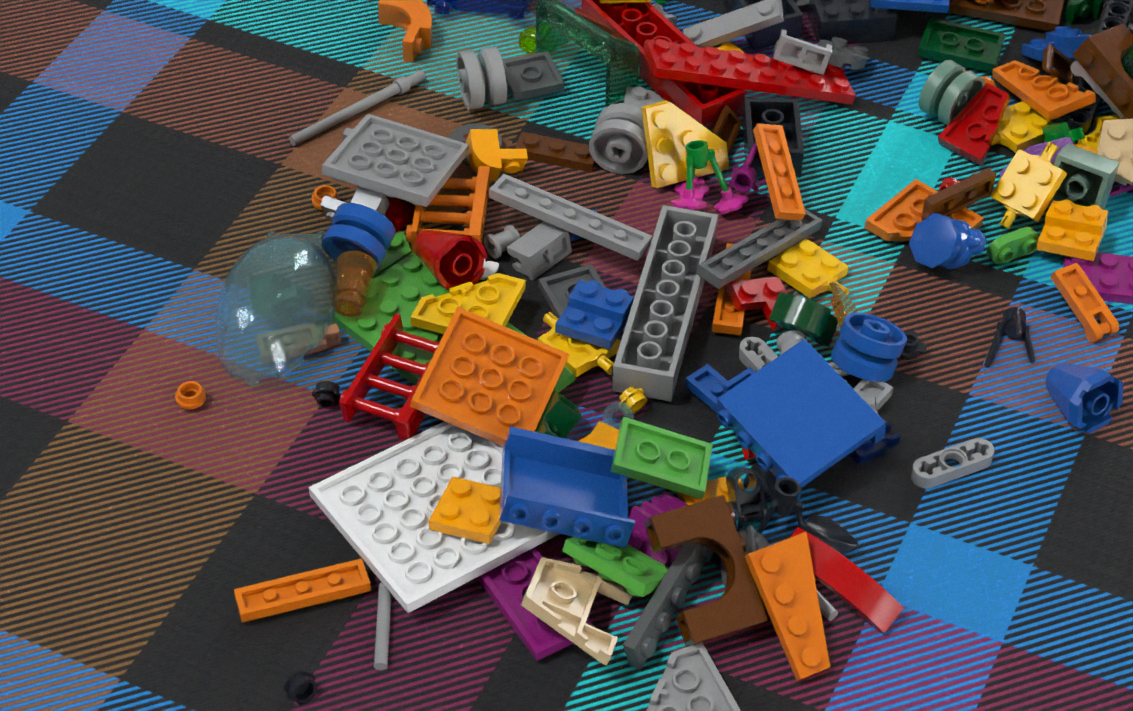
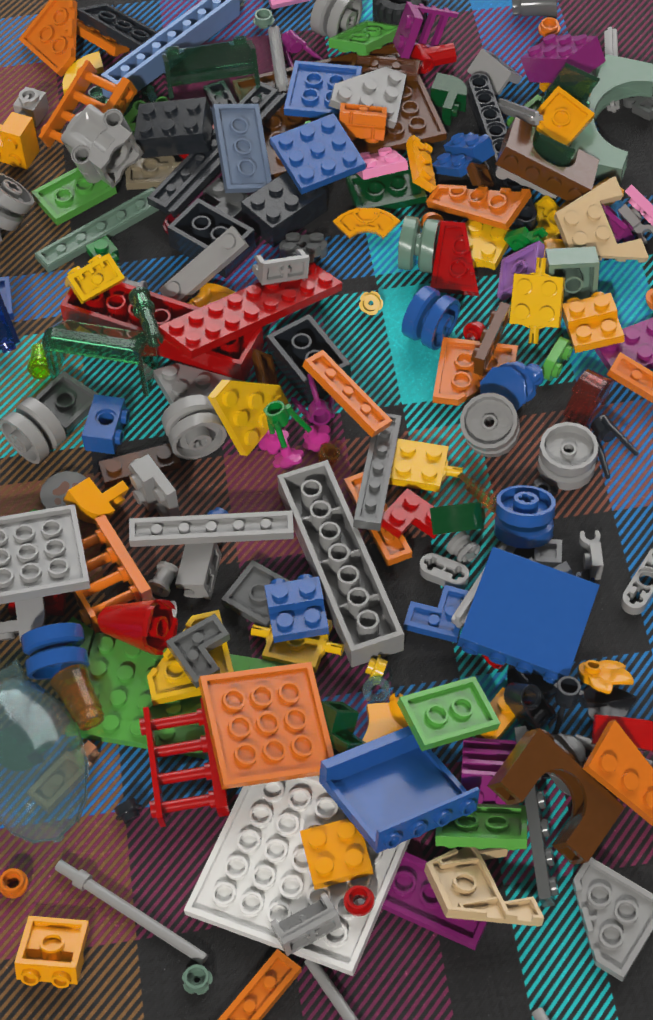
camera: 30 degrees left, 10 degrees up
(176, 457) = (51, 951): none -> light orange plate
(248, 427) = (84, 881): none -> light grey bar
(277, 539) = (193, 972): none -> sand green plate
(396, 549) = (307, 925): none -> light grey hinge
(457, 552) = (355, 893): none -> red plate
(477, 290) = (193, 645): none -> dark grey plate
(546, 154) = (153, 487): none -> light grey plate
(550, 106) = (105, 424): none -> blue brick
(646, 27) = (144, 310): none -> clear green pin
(729, 220) = (329, 452): none -> clear orange hinge
(835, 510) = (604, 674): none -> light orange plate
(866, 119) = (366, 307): none -> yellow plate
(898, 262) = (486, 410): none -> light grey wheel
(912, 417) = (593, 559): none -> light grey plate
(913, 153) = (430, 317): none -> blue wheel
(915, 58) = (366, 221): none -> light orange tile
(955, 323) = (567, 456): none -> light grey wheel
(979, 21) = (382, 163): none -> bright pink plate
(1011, 37) = (421, 163): none -> light orange plate
(1021, 281) = (587, 394): none -> clear red brick

